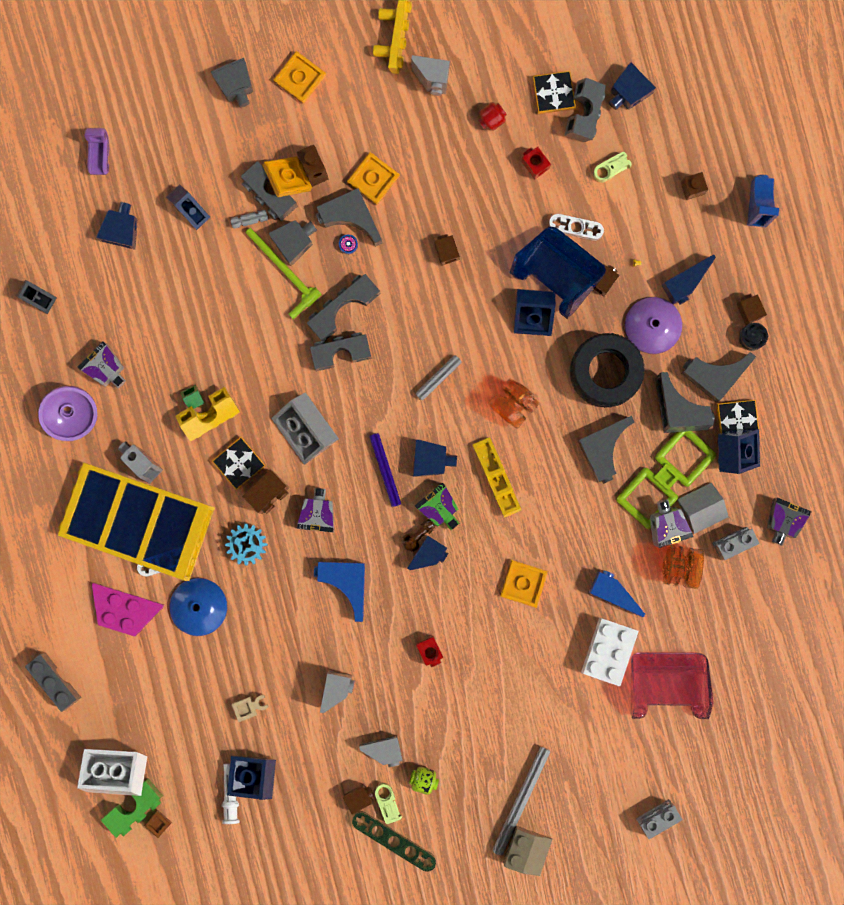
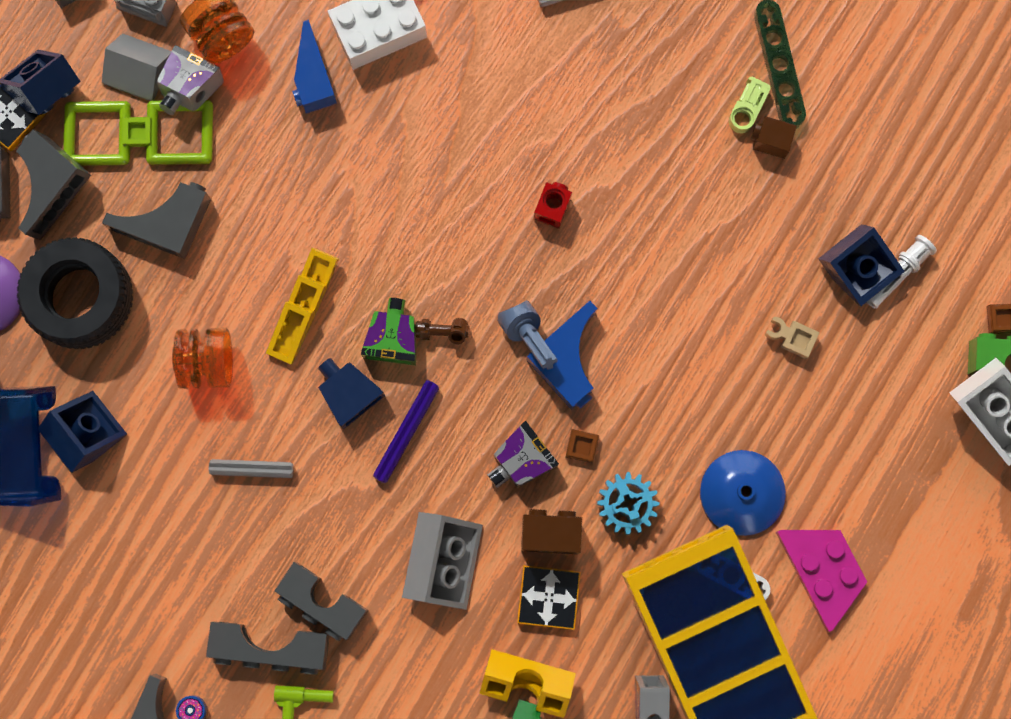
camera: 135 degrees left, 5 degrees down
(56, 688) = (977, 554): dark grey arch -> none
(296, 549) = (582, 446): none -> dark orange tile
(336, 689) = (687, 259): light grey slope -> none
(382, 577) = (522, 324): none -> sand blue piece
(384, 751) = (700, 157): light grey slope -> none
(423, 780) = (690, 88): lime head -> none
(429, 554) = (453, 300): dark blue slope -> none
(446, 249) = (96, 593): reddish brown brick -> none
(524, 583) = (390, 175): light orange tile -> none

